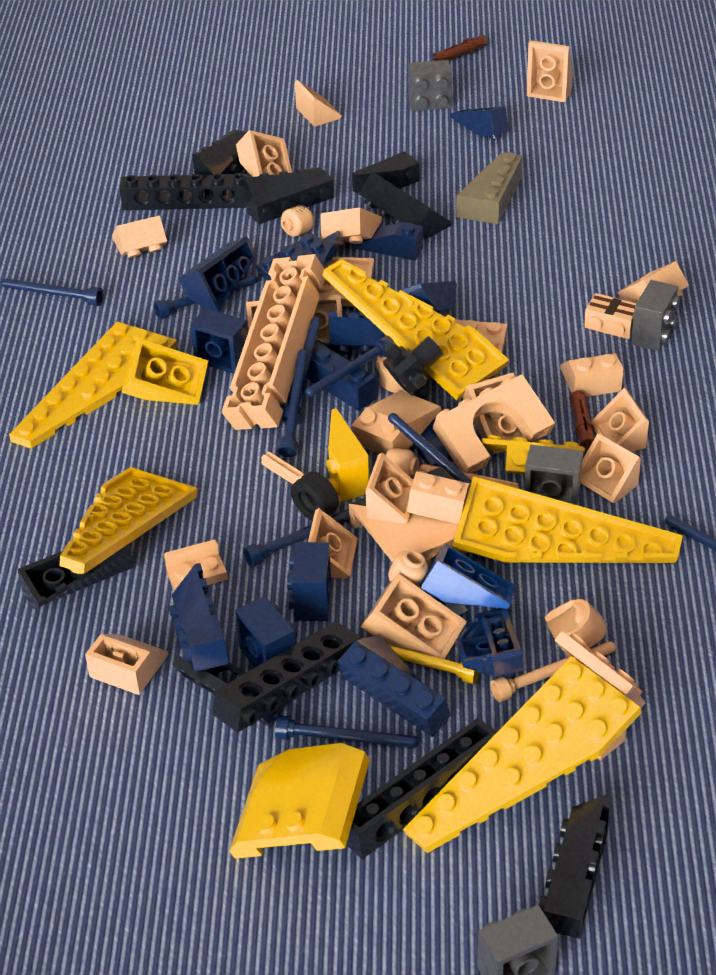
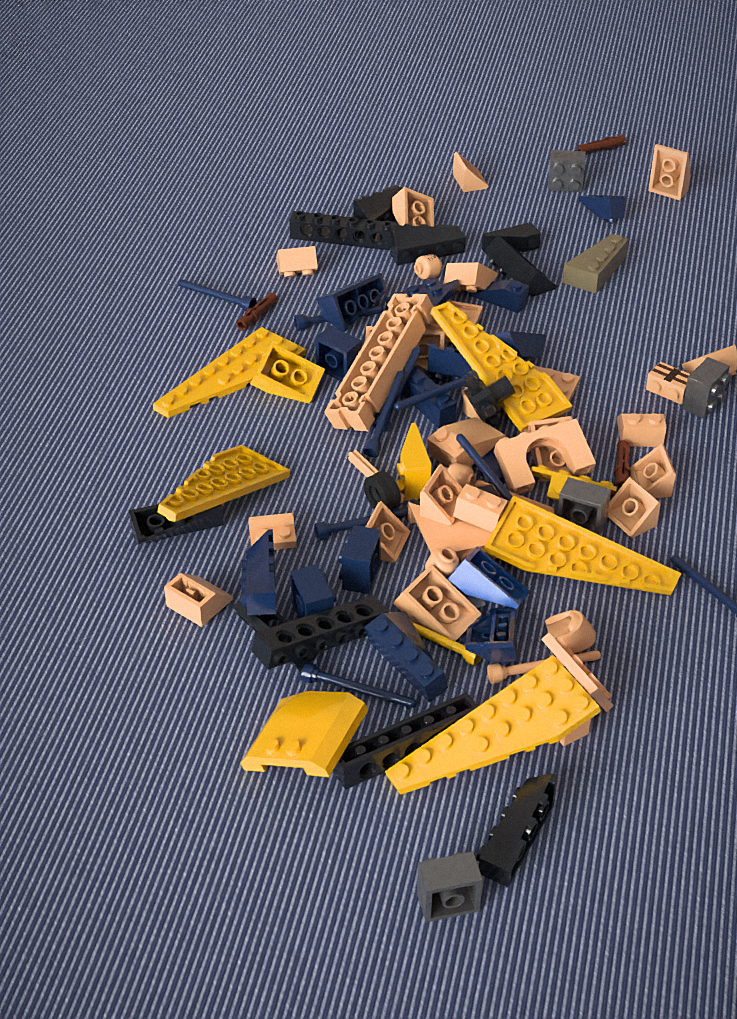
camera: 10 degrees right, 0 degrees up
(102, 308) = (252, 314): none -> copper pin

